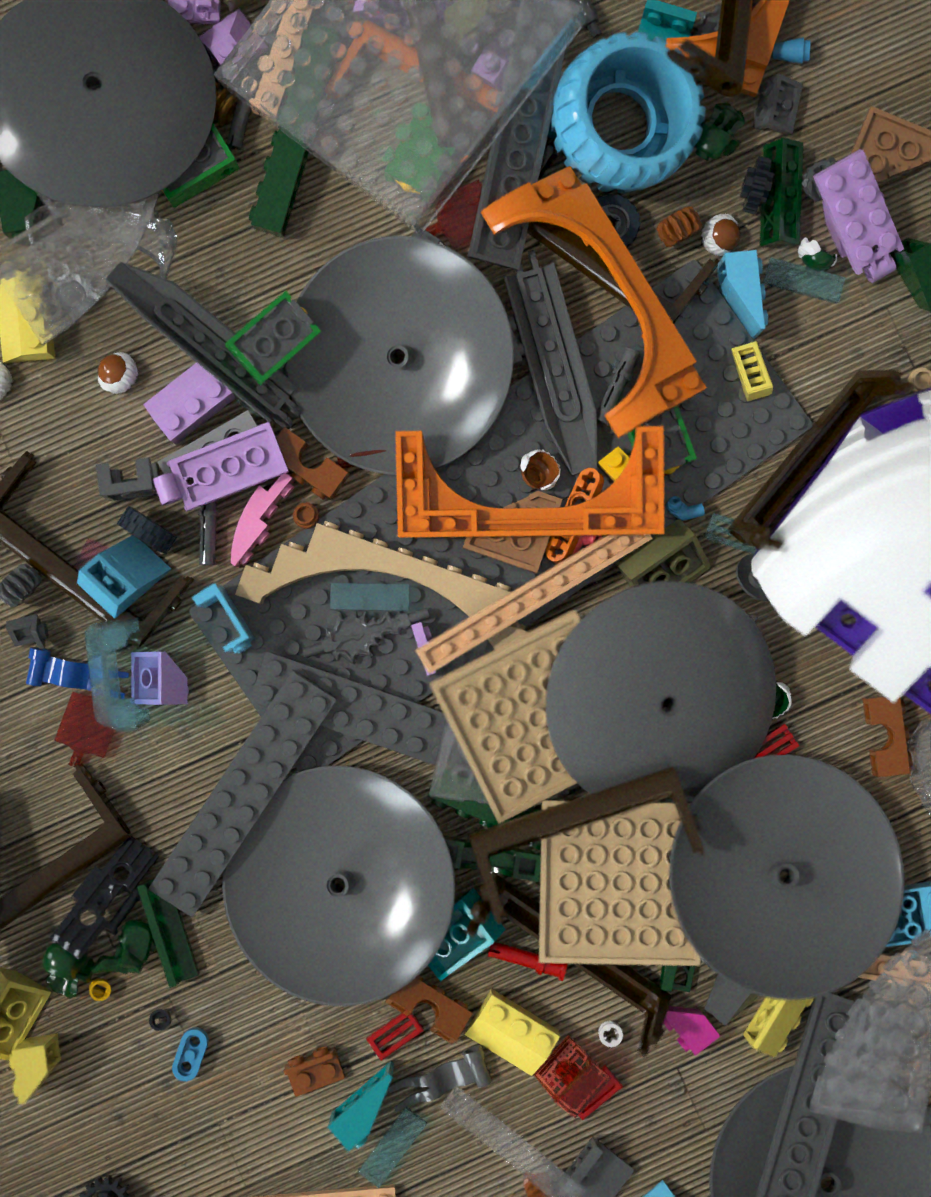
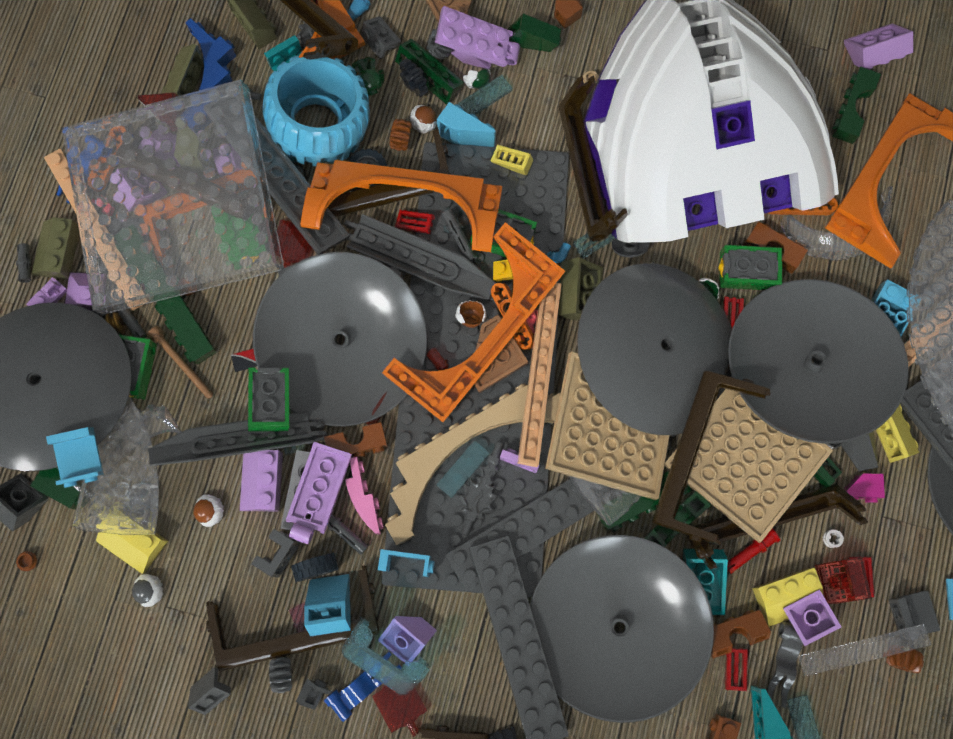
camera: 50 degrees left, 10 degrees down
(52, 198) = (76, 456): none -> medium azure panel
(248, 161) = (157, 334): none -> medium nougat piece
(297, 272) = (243, 360): none -> black sticker
(305, 515) = (384, 468): dark orange plate -> none
(462, 476) = (437, 359): none -> clear red pin
(505, 1072) = (812, 617): none -> lavender slope
(602, 342) = (426, 229): none -> red tile
(838, 726) = (750, 267): none -> piece

